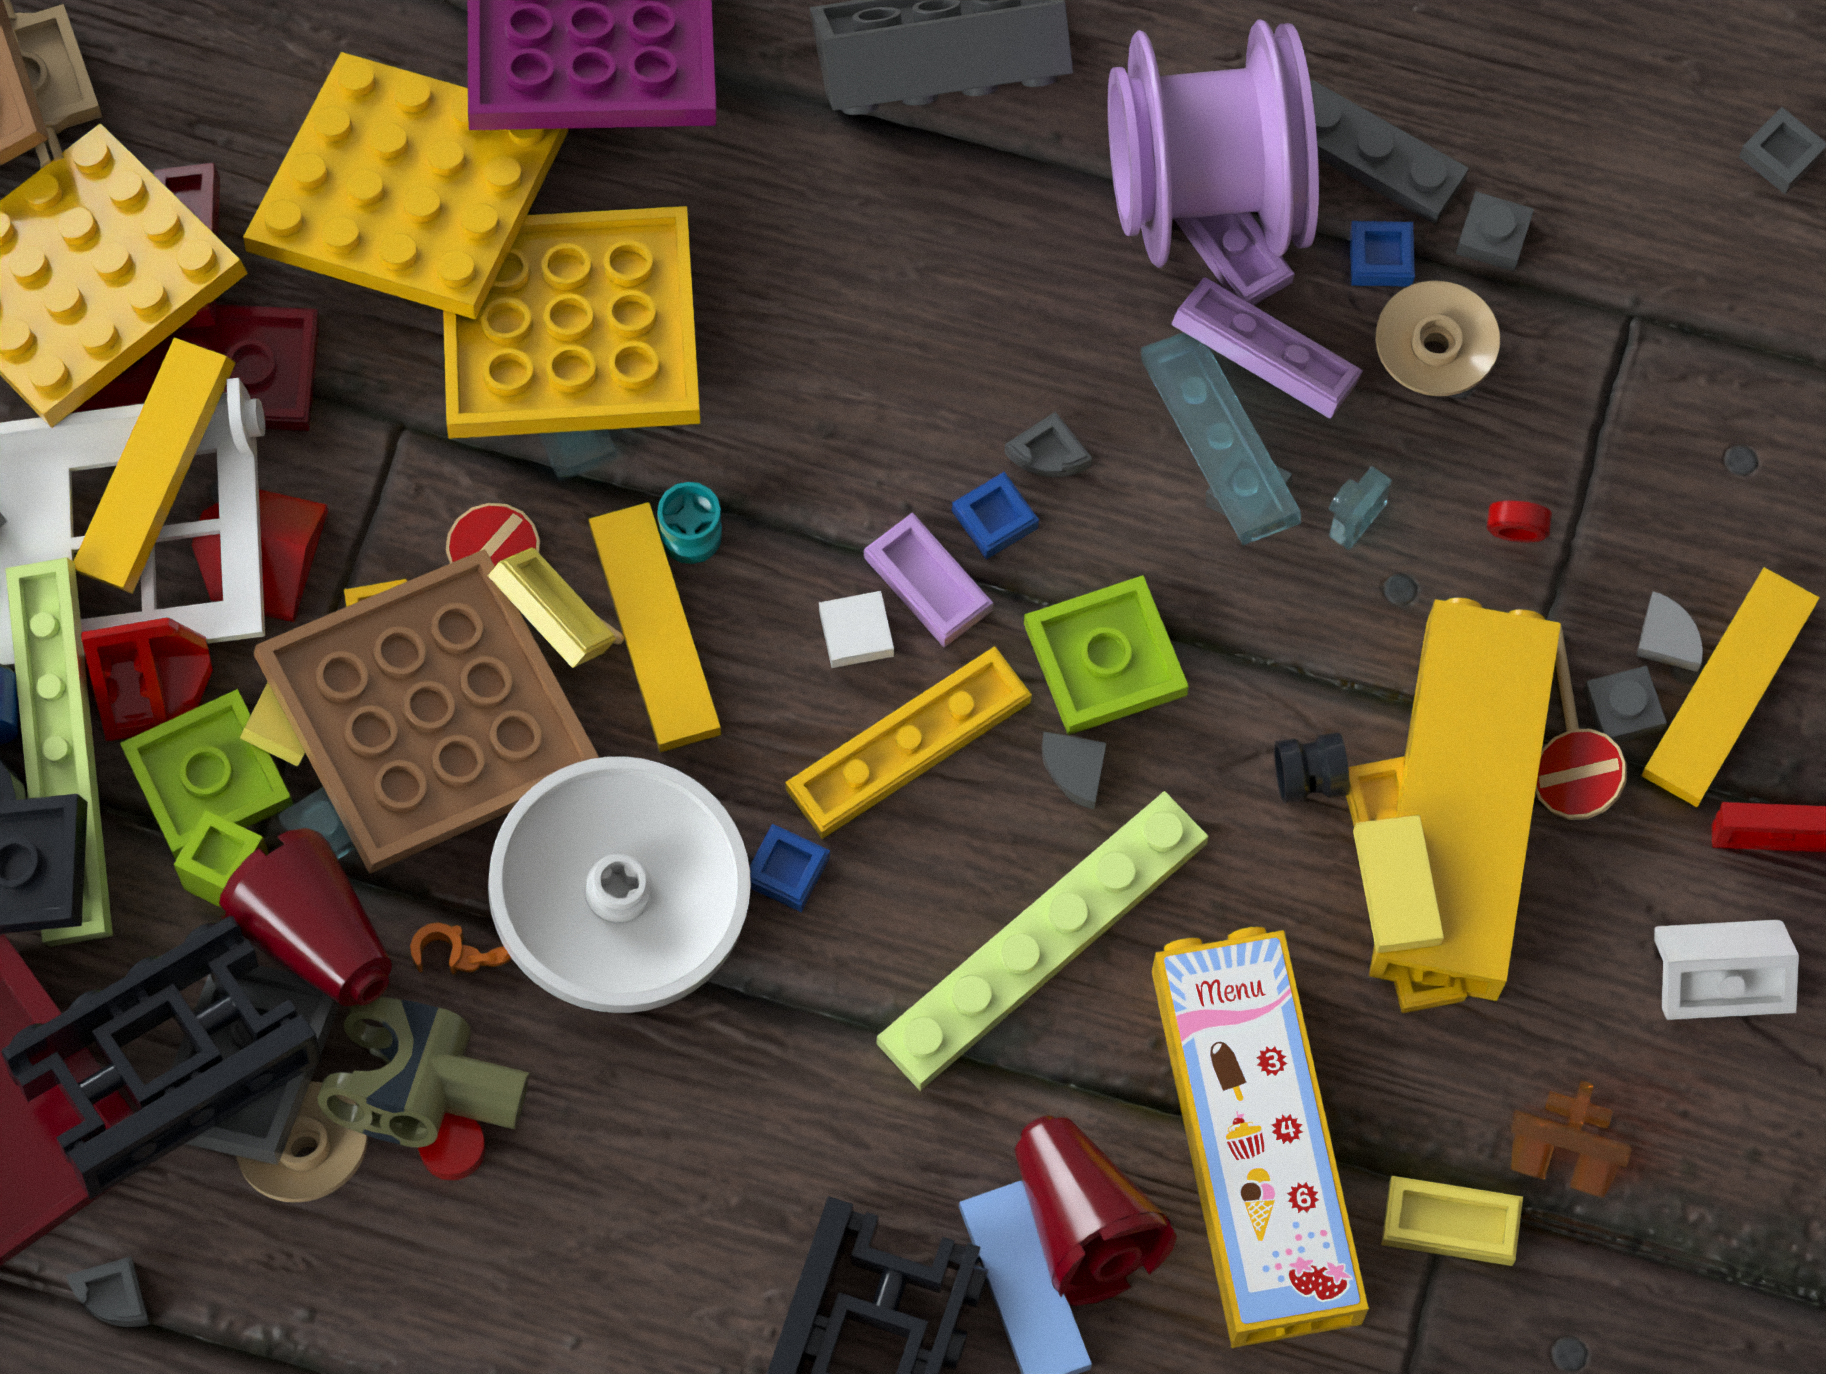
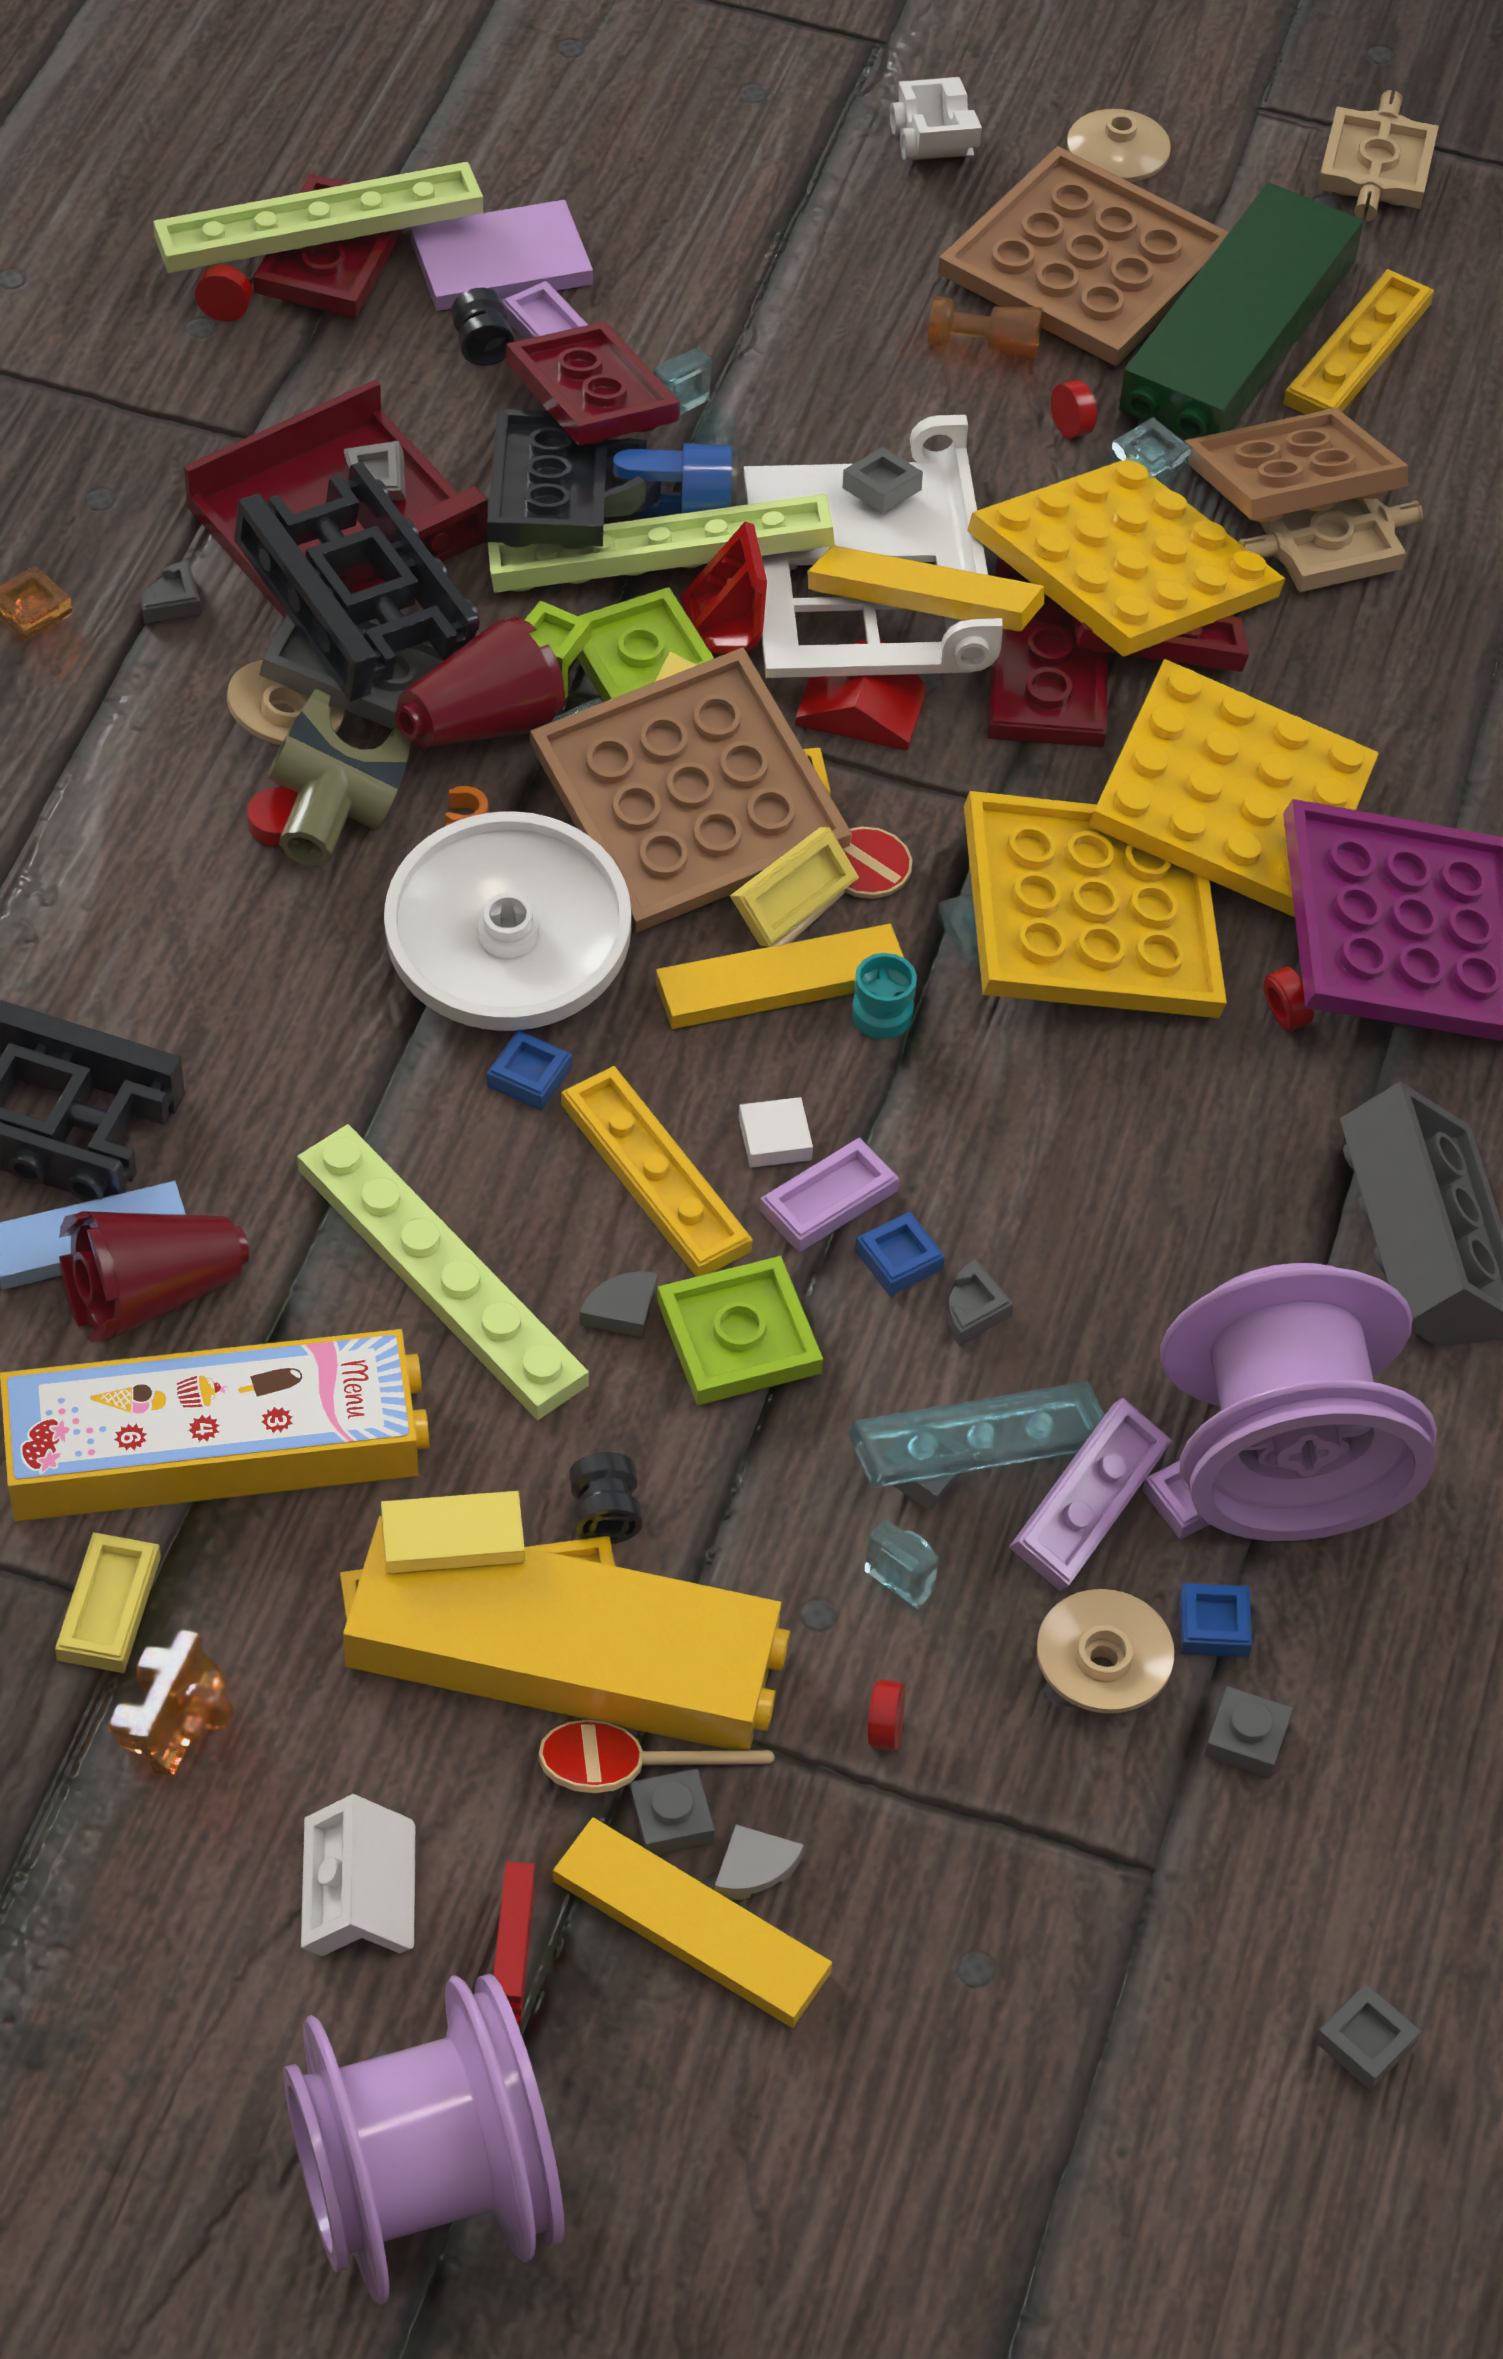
camera: 90 degrees right, 15 degrees down
(674, 152) = (1286, 999): none -> red tile
(1384, 156) = (1339, 1621): dark grey plate -> none

